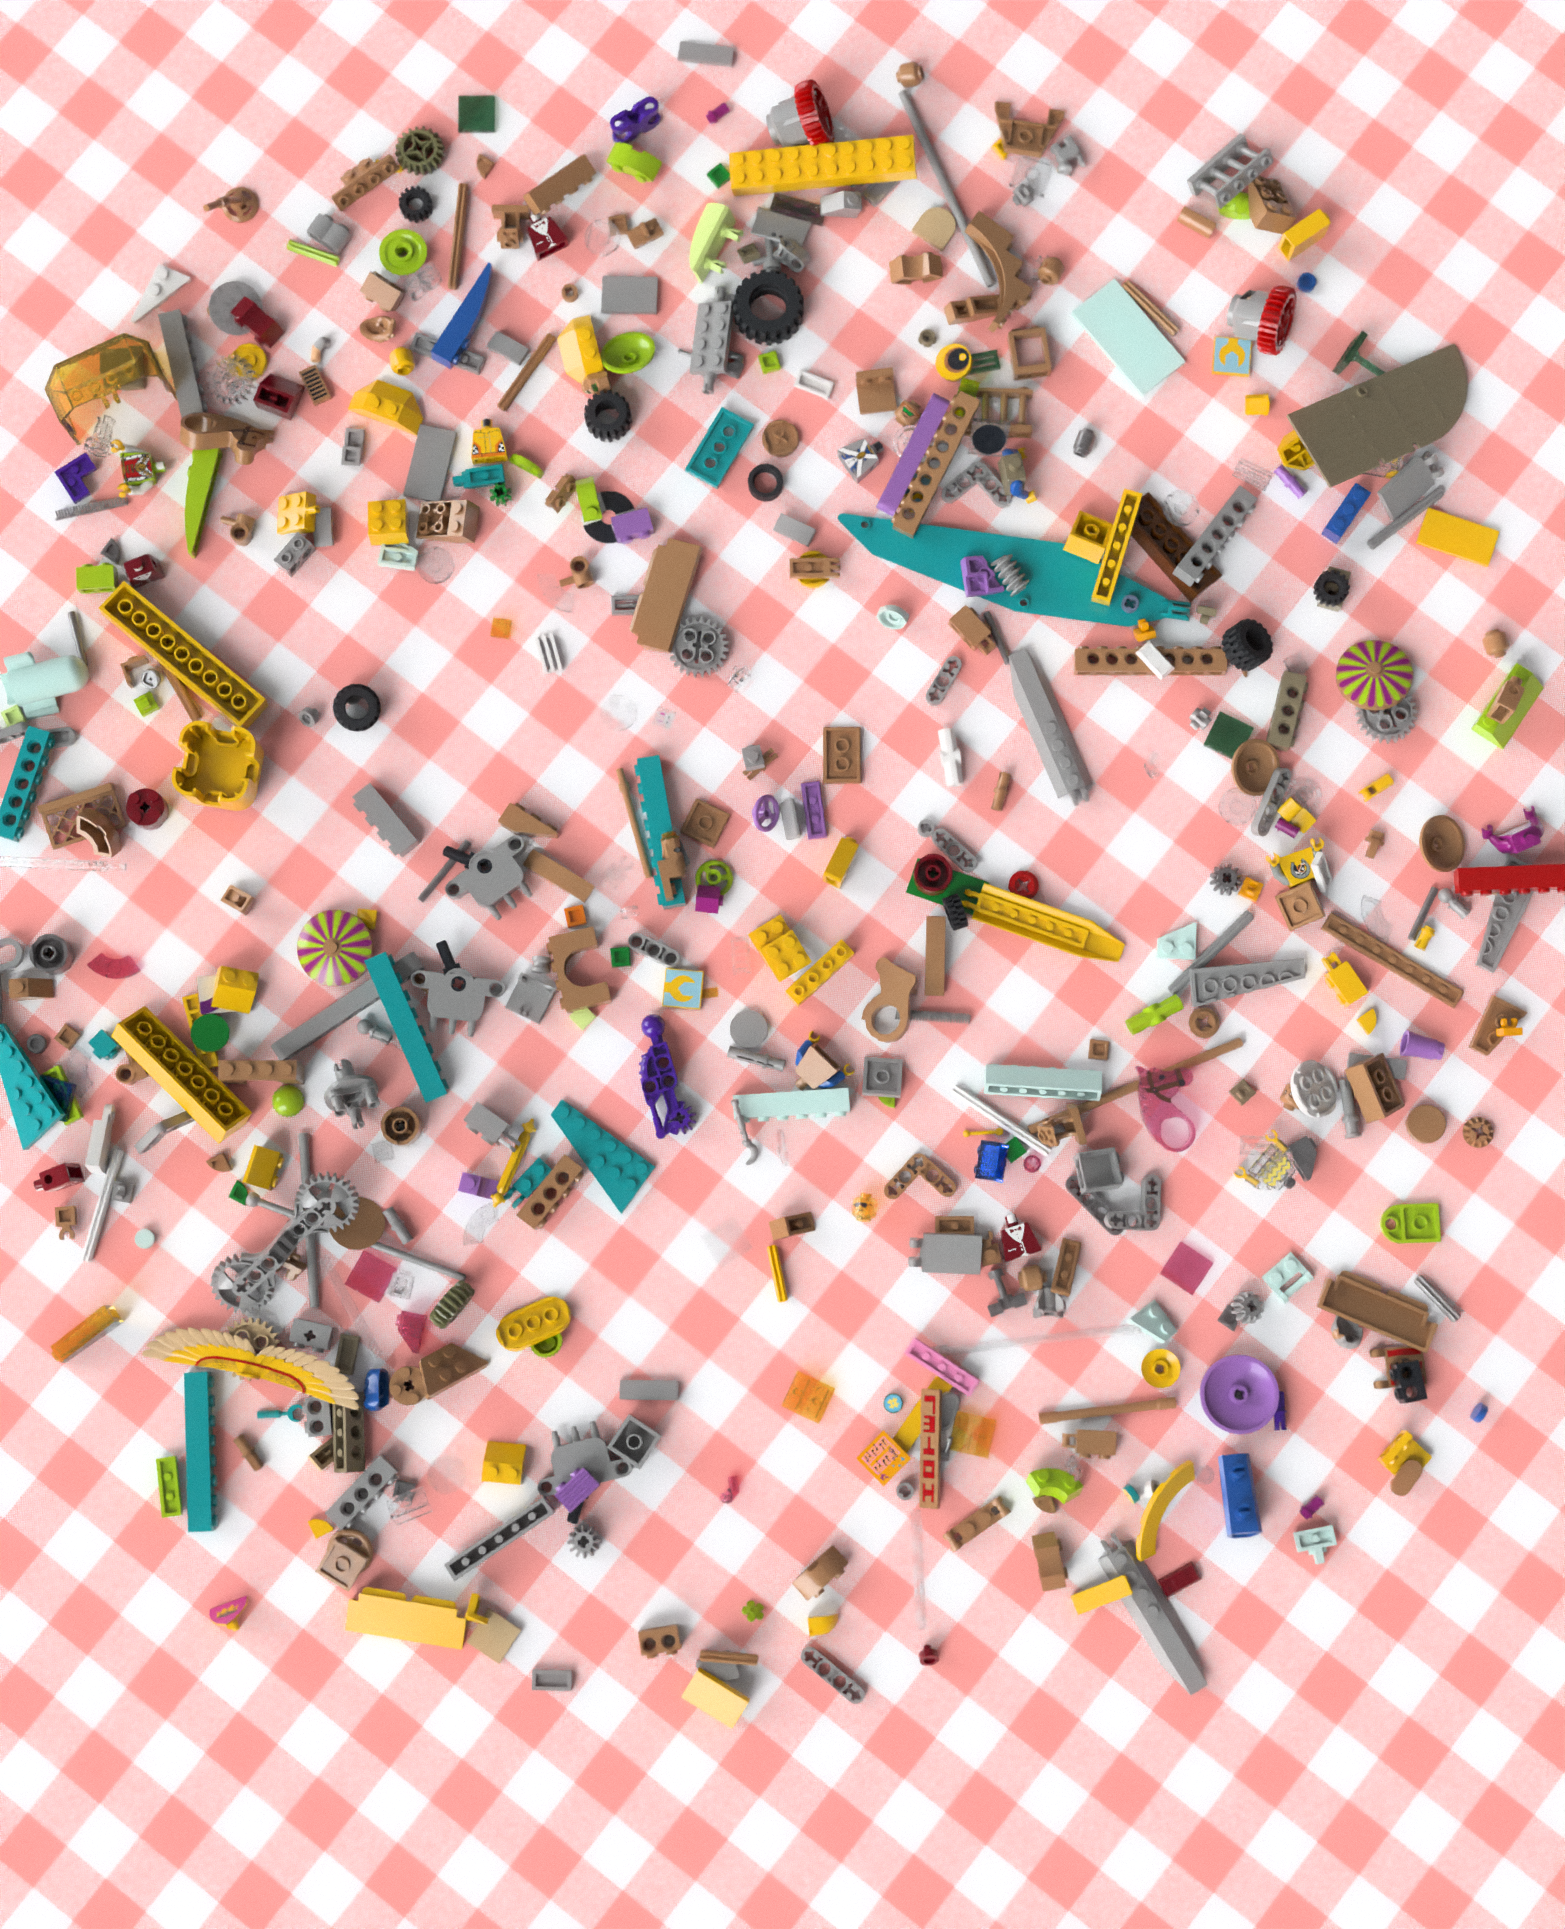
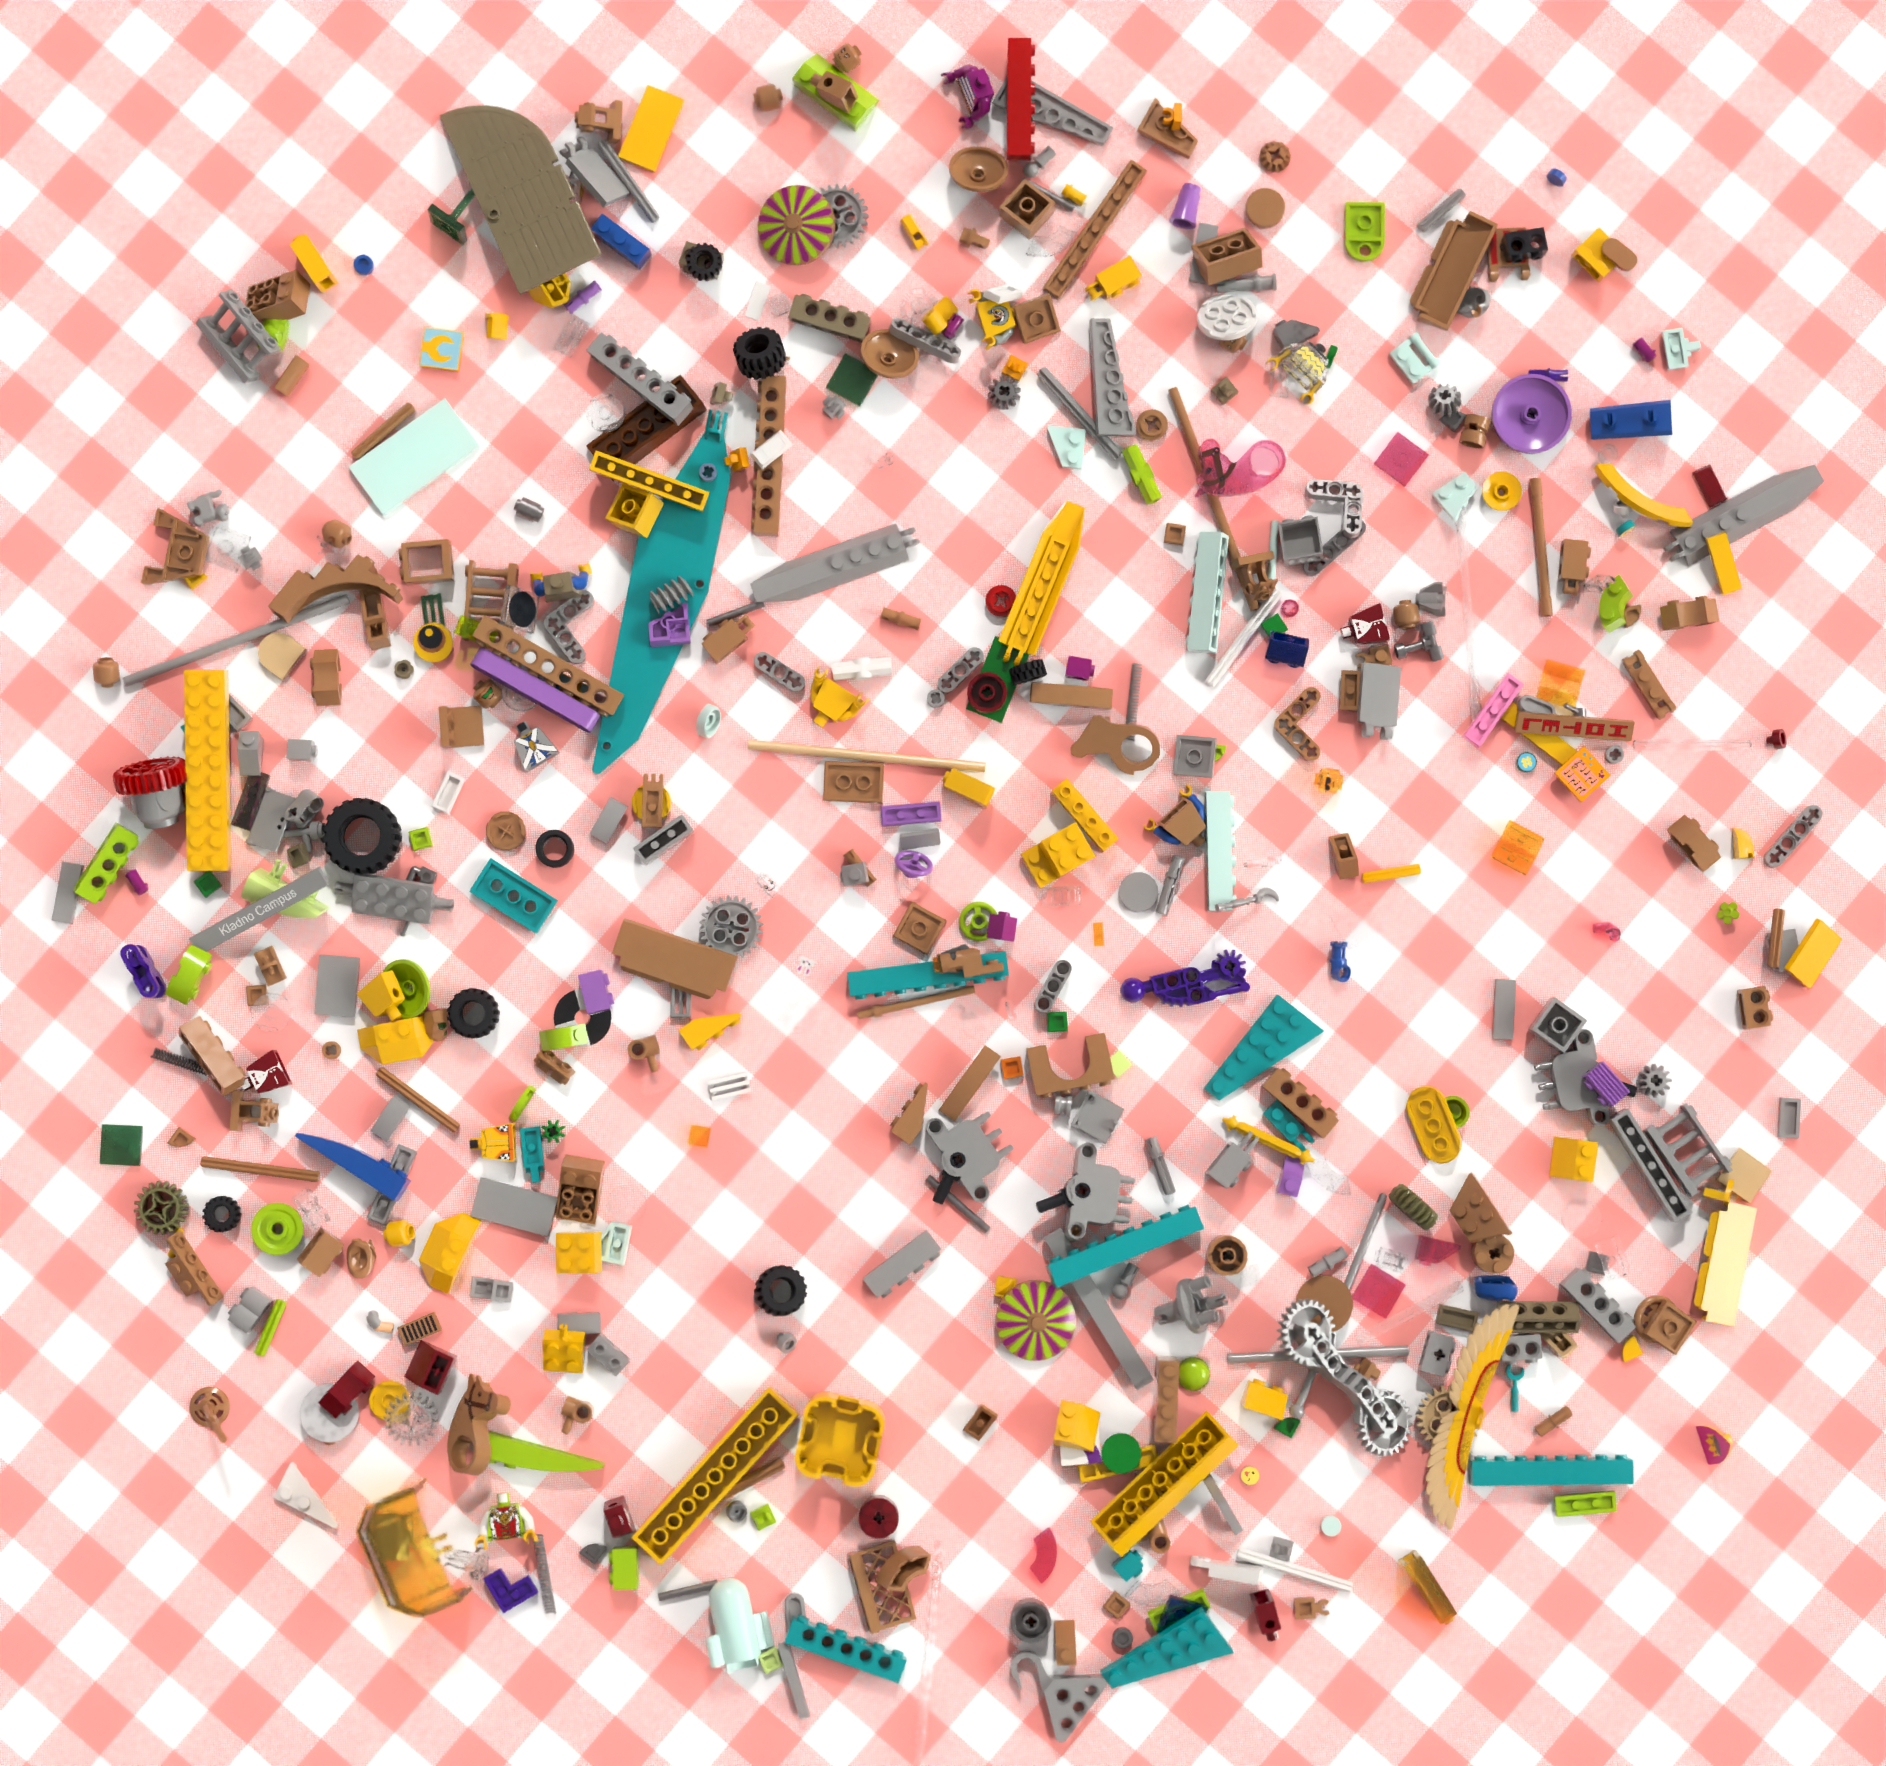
camera: 90 degrees left, 5 degrees up
(132, 663) = (718, 1531): medium nougat bracket -> none
(181, 362) = (390, 1472): light grey brick -> none
(192, 1158) = (1249, 1475): none -> light yellow tile
(219, 1163) = (1255, 1446): medium nougat tile -> none
(486, 1060) = (1160, 1165): none -> light grey axle
(499, 1569) = (1679, 1167): none -> light grey fence
(550, 170) = (179, 1058): none -> dark grey piece
(599, 623) = (702, 1029): none -> yellow slope
(620, 333) = (383, 996): none -> yellow torso
(683, 989) = (1093, 958): tile -> none
(689, 1225) = (1339, 961): none -> blue connector
(695, 219) = (260, 910): none -> light grey tile
(710, 67) = (117, 834): none -> lime brick
(777, 580) = (664, 840): none -> light grey brick
(846, 250) = (301, 750): none -> light grey brick
(867, 766) = (866, 755): none -> tan piece
(918, 730) = (833, 700): none -> yellow torso
(961, 962) = (1079, 668): none -> magenta brick
(966, 1133) = (1254, 640): yellow hinge -> none
(1065, 1267) = (1397, 579): medium nougat tile -> none
(1088, 1146) = (1273, 547): none -> light aqua bar
(1218, 1338) = (1472, 437): none -> medium nougat wheel
(1264, 317) = (404, 312): piece -> none
(1285, 1194) = (1330, 355): none -> green tile
(1299, 644) = (757, 300): none -> white sticker
(1368, 1021) = (1157, 258): yellow tile -> none
(1406, 892) = (1027, 209): none -> medium nougat brick
(1462, 472) = (586, 119): none -> medium nougat tile
(1541, 715) = (847, 57): none -> medium nougat head

